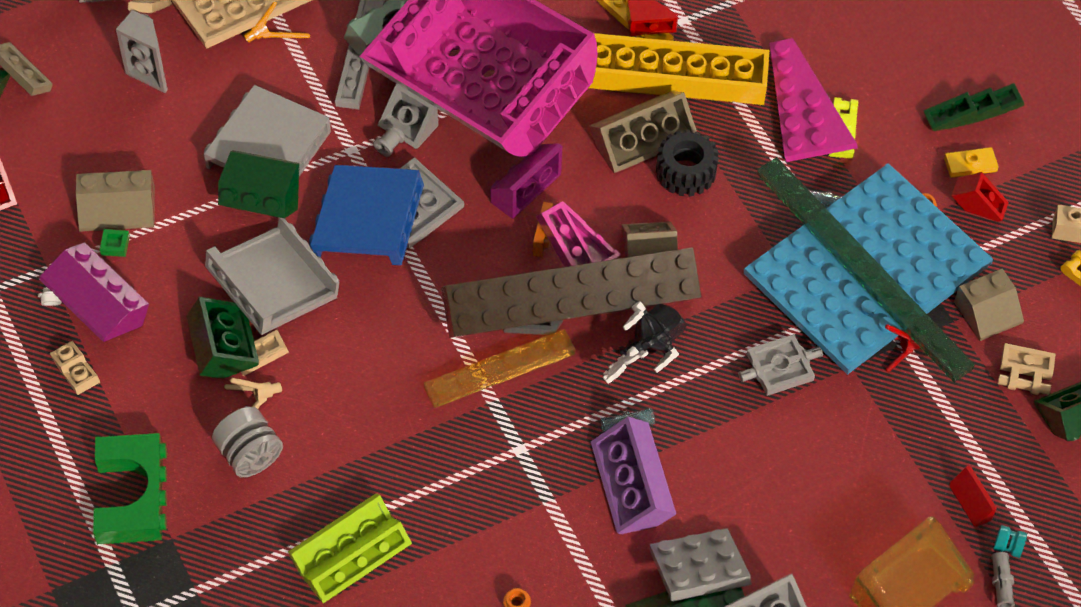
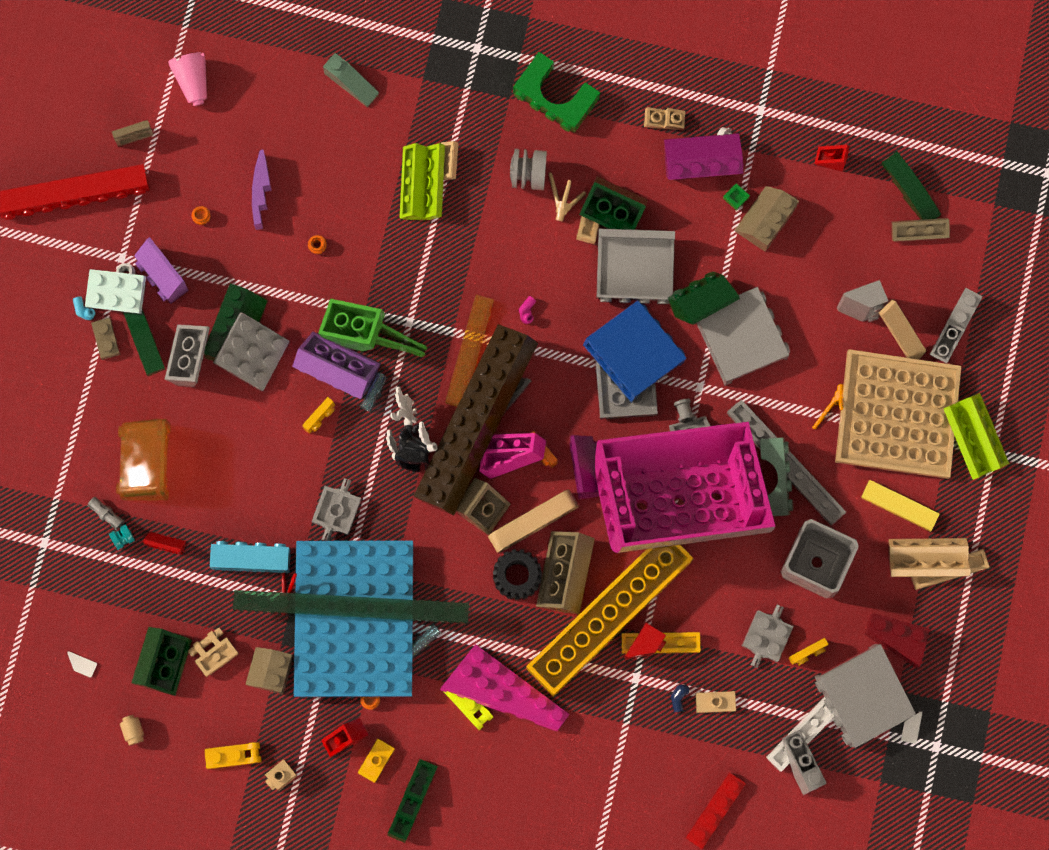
camera: 130 degrees right, 20 degrees up
(297, 535) = (450, 159): none -> tan plate
(412, 345) = (525, 310): none -> dark pink arm
(574, 471) = (358, 329): none -> bright green slope
(621, 189) = (533, 521): none -> tan beam
(702, 452) = (314, 421): none -> yellow plate
(906, 404) = (250, 558): none -> medium azure brick

